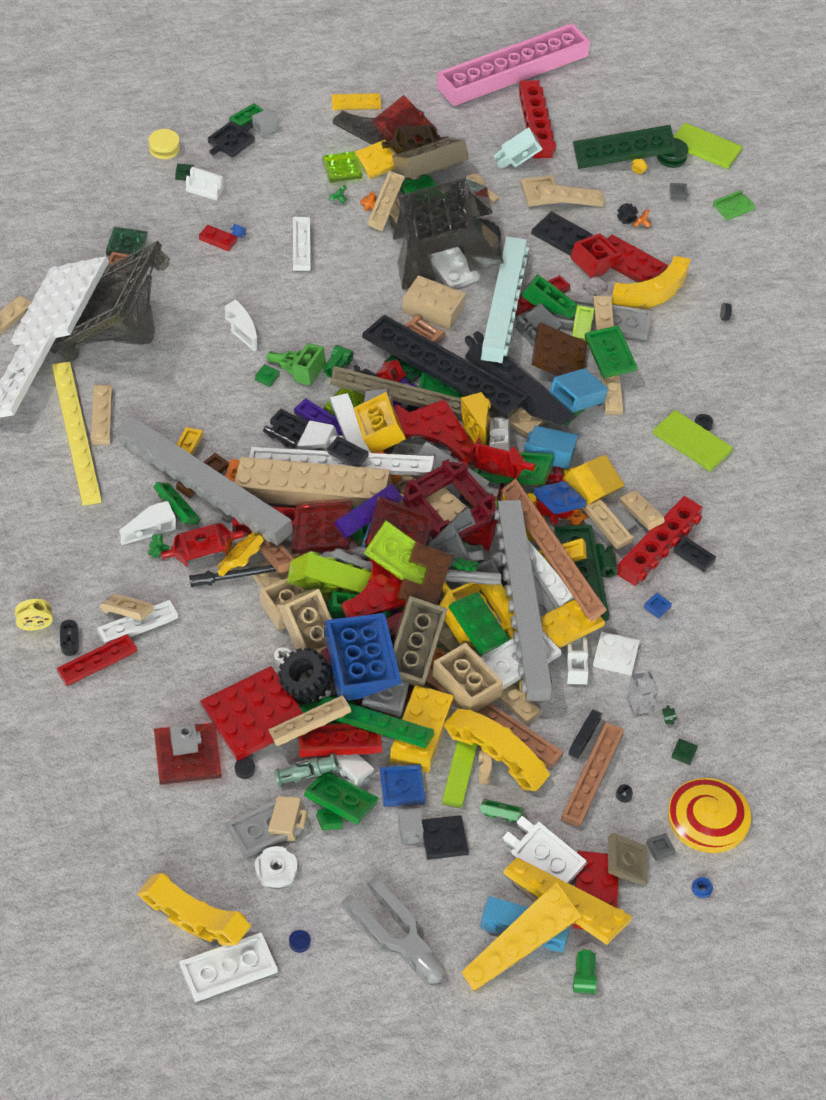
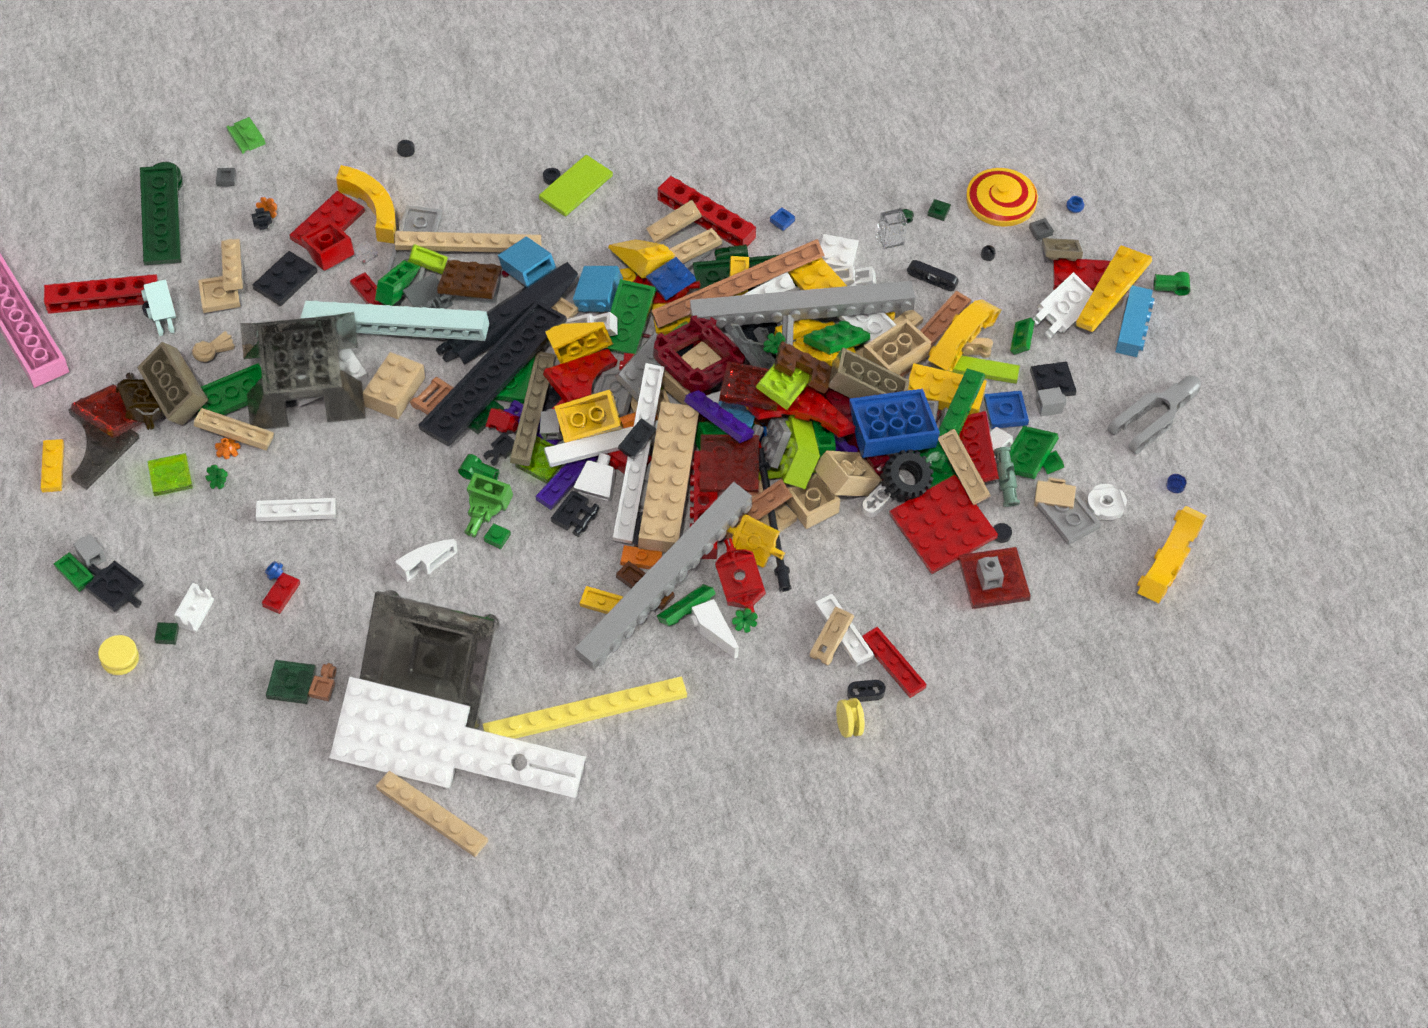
camera: 90 degrees left, 5 degrees up
(101, 415) = (558, 687): tan plate -> none
(228, 967) = (1218, 537): white plate -> none
(375, 159) = (160, 441): yellow plate -> none
(497, 460) = (626, 337): red plate -> none
(535, 927) = (1144, 302): yellow wing -> none
(592, 775) = (976, 272): nougat plate -> none
(610, 352) = (476, 232): green plate -> none
(639, 166) = (185, 207): yellow plate -> none
(694, 554) = (721, 188): black plate -> none
(709, 146) = (153, 148): lime tile -> none

